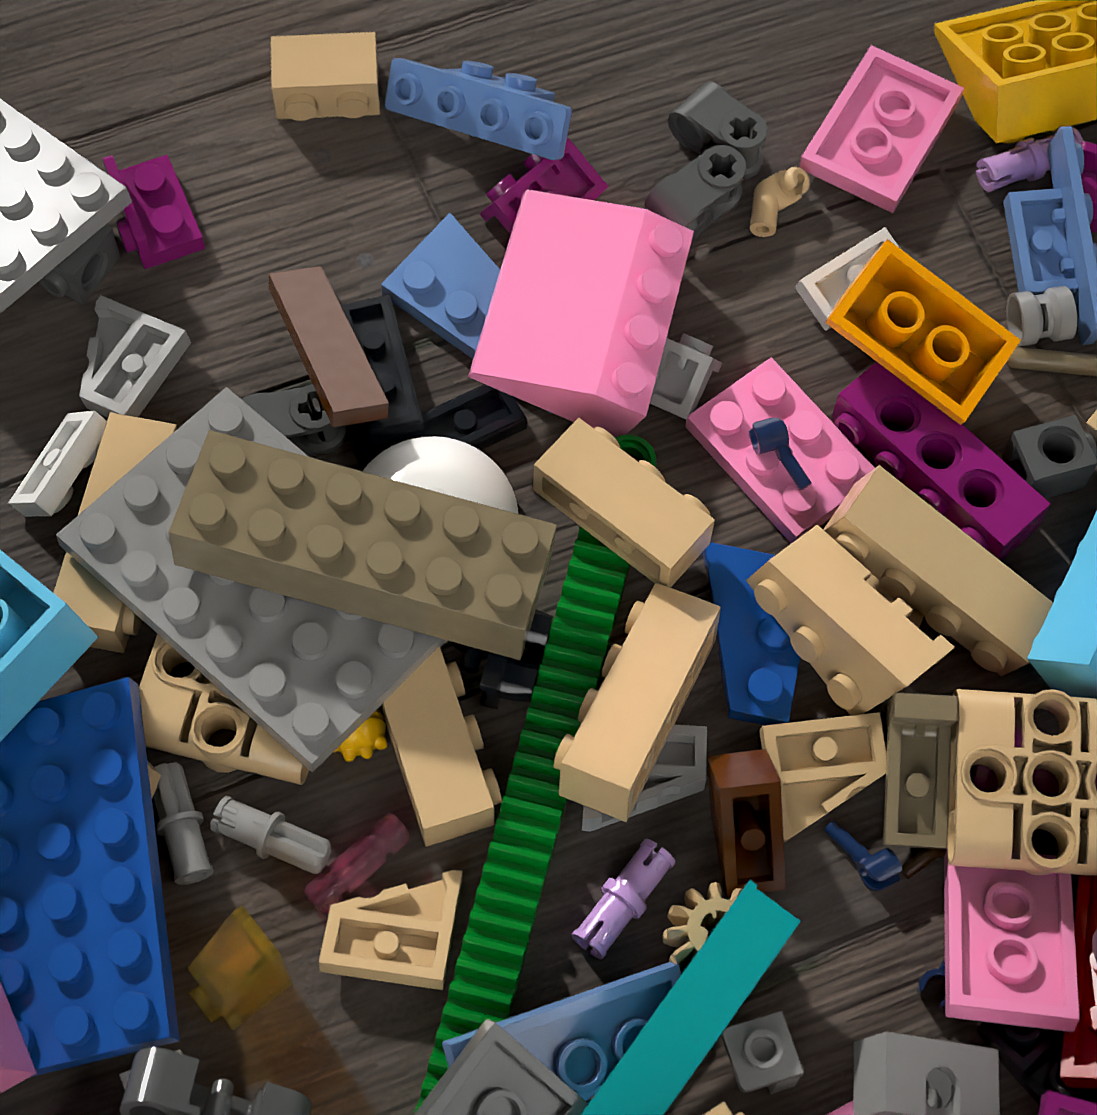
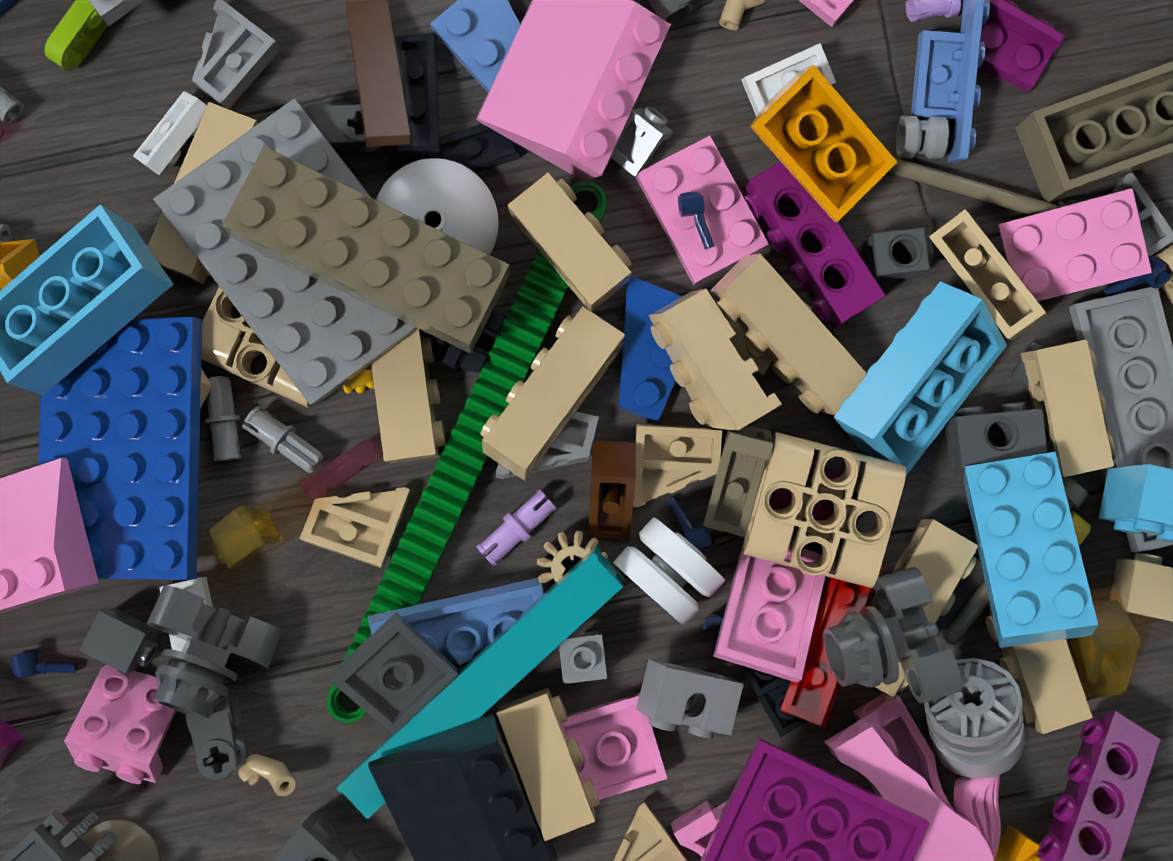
camera: 10 degrees right, 20 degrees up
(857, 906) = (669, 570): none -> white wheel

